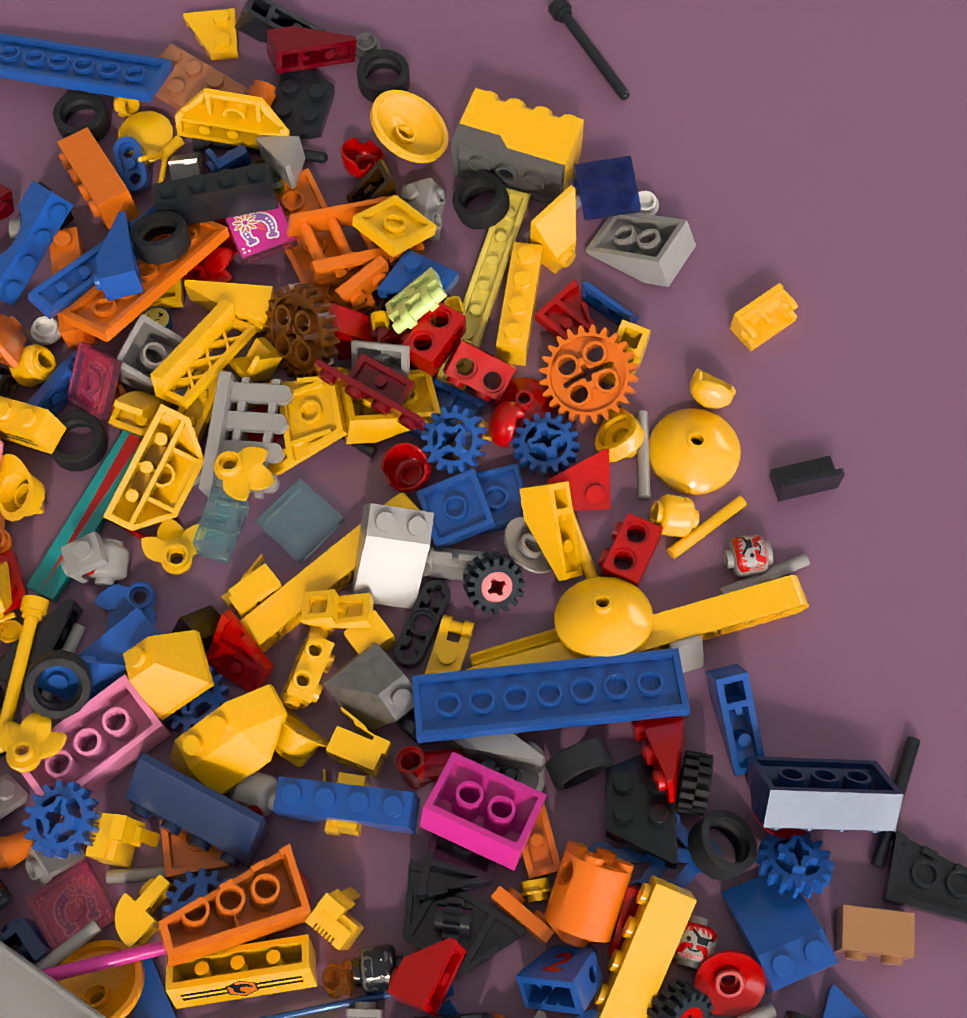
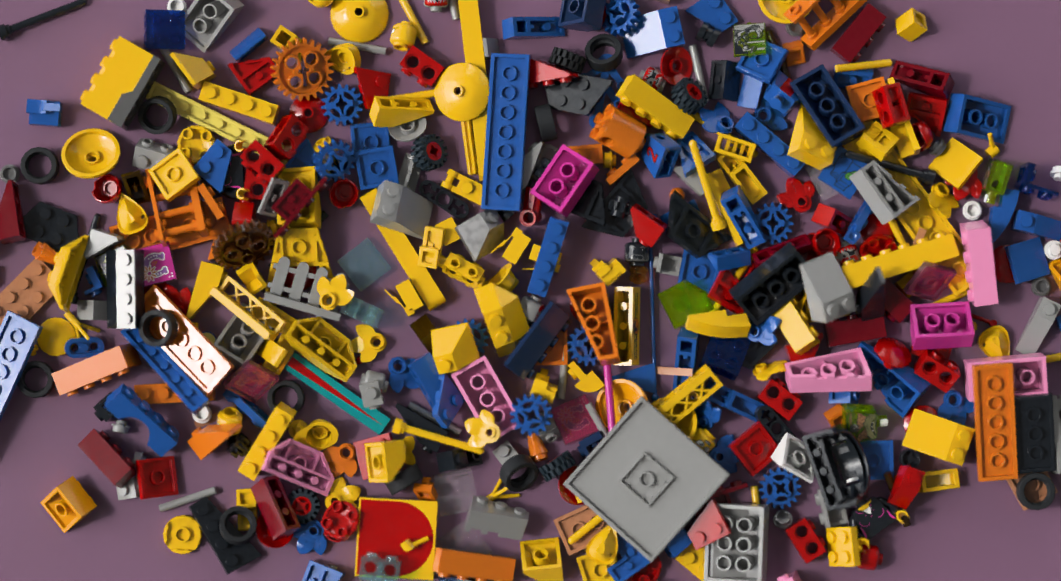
camera: 85 degrees left, 20 degrees up
(35, 464) = (295, 426): none -> yellow tile
(57, 709) = (465, 407): black tyre -> none
(118, 262) = (178, 355): blue slope -> none
(238, 655) = (447, 309): red wing -> none
(326, 186) = (130, 216): none -> yellow piece
(415, 301) = (234, 171): yellowish green plate -> none
(453, 253) = (195, 142): none -> yellow dish
(457, 70) = (44, 112): none -> blue piece
(504, 422) = (326, 128): red hair -> none

